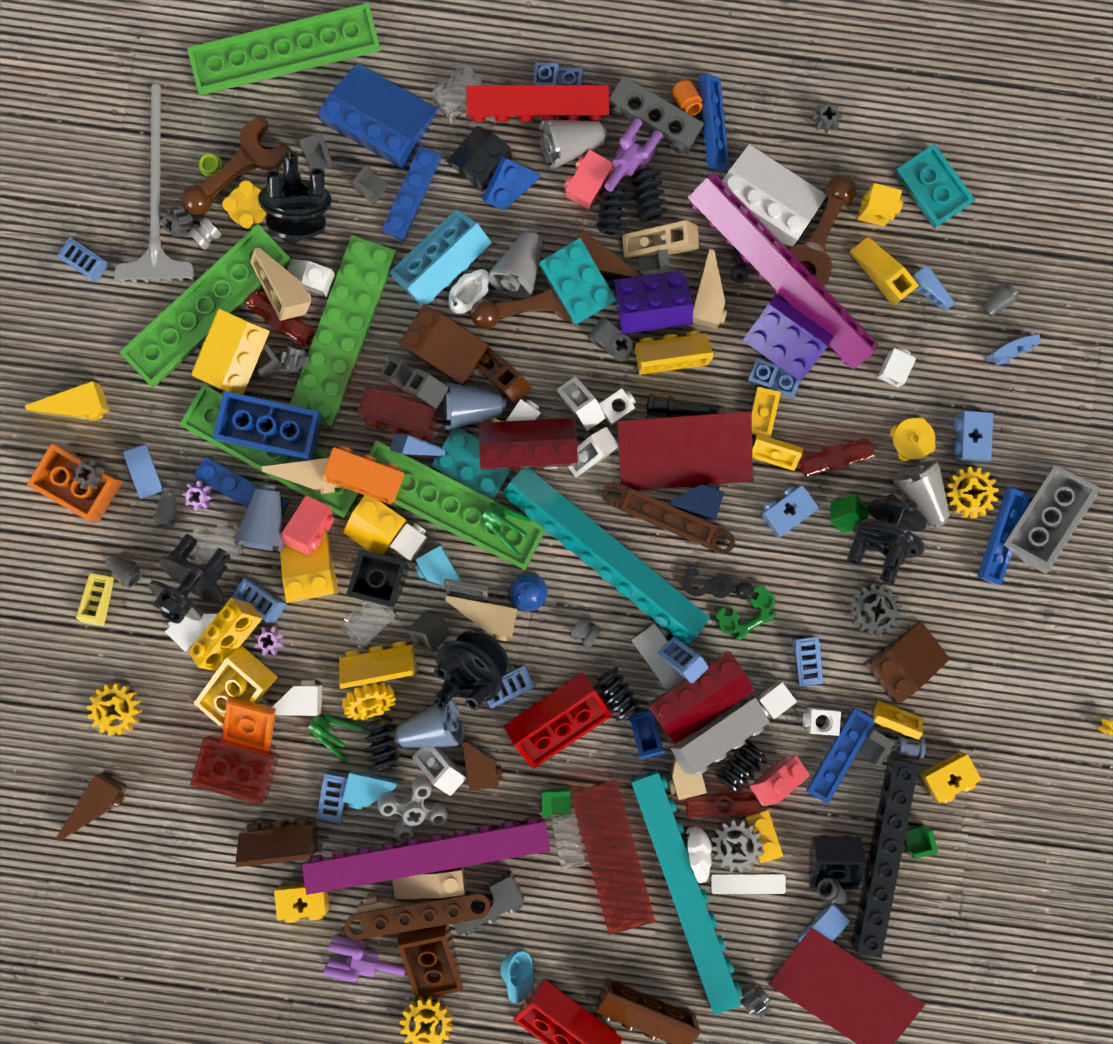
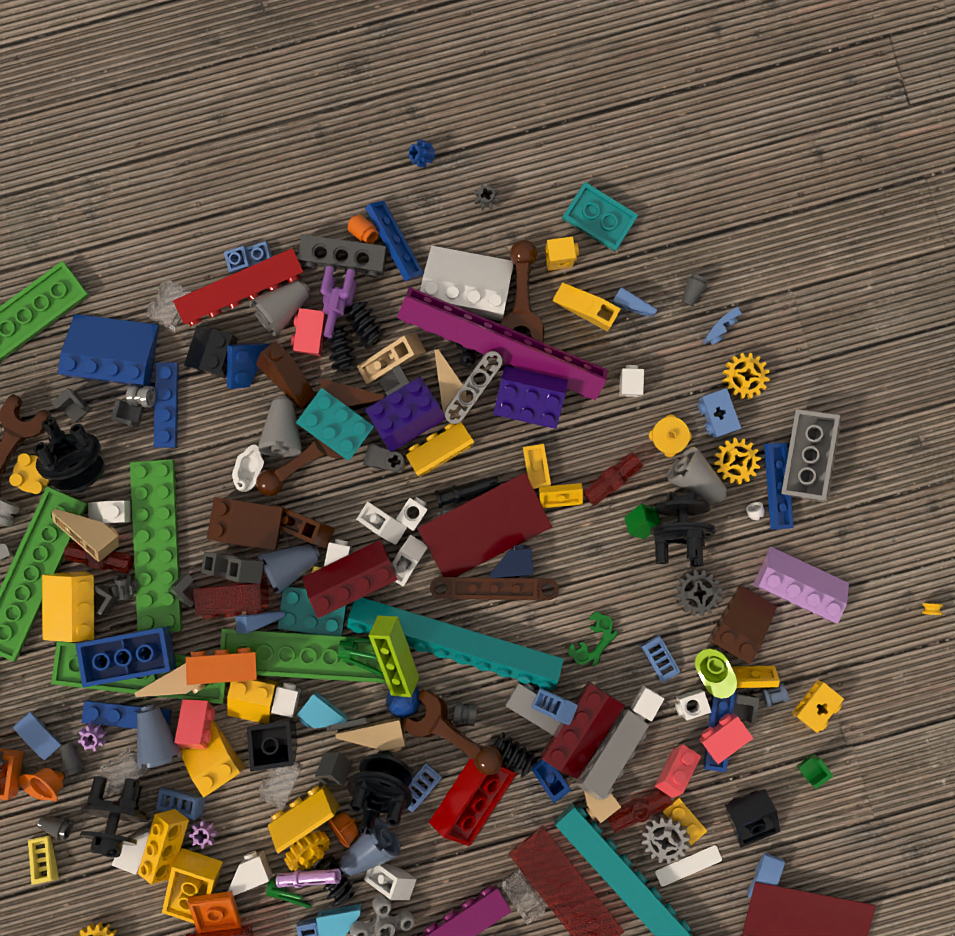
camera: 20 degrees left, 0 degrees up
(128, 522) = (43, 784): none -> orange piece
(350, 725) = (302, 878): none -> lavender pin
(353, 386) = (183, 589): none -> dark grey panel
(391, 171) = (141, 395): none -> light grey wheel
(414, 695) = (344, 828): none -> orange piece
(440, 257) = (212, 450): medium azure slope -> none
(480, 767) = (424, 864): reddish brown slope -> none
(541, 539) = (394, 656): none -> lime brick
(547, 211) = (284, 372): none -> reddish brown slope
(552, 627) = (436, 722): none -> reddish brown piece
(555, 801) = (498, 866): green panel -> none
(699, 853) = (636, 859): white arm -> none
(719, 586) = (560, 628): black piece -> none
(736, 304) = (470, 385): none -> light grey beam
(742, 767) = (643, 772): black piece -> none
(774, 378) = (533, 434): medium blue slope -> none
(779, 45) = (421, 153): none -> blue gear
(802, 505) = (591, 552): medium blue brick -> none
(832, 892) = (760, 844): dark grey cone -> none
(843, 767) = (725, 737): none -> coral brick
(860, 698) = (716, 673): none -> lime piece
(884, 857) = (791, 796): black brick -> none
(969, 552) = (755, 510): none -> white hinge
(985, 648) = (803, 585): none -> lavender slope
(1027, 408) = (748, 367): none -> yellow gear

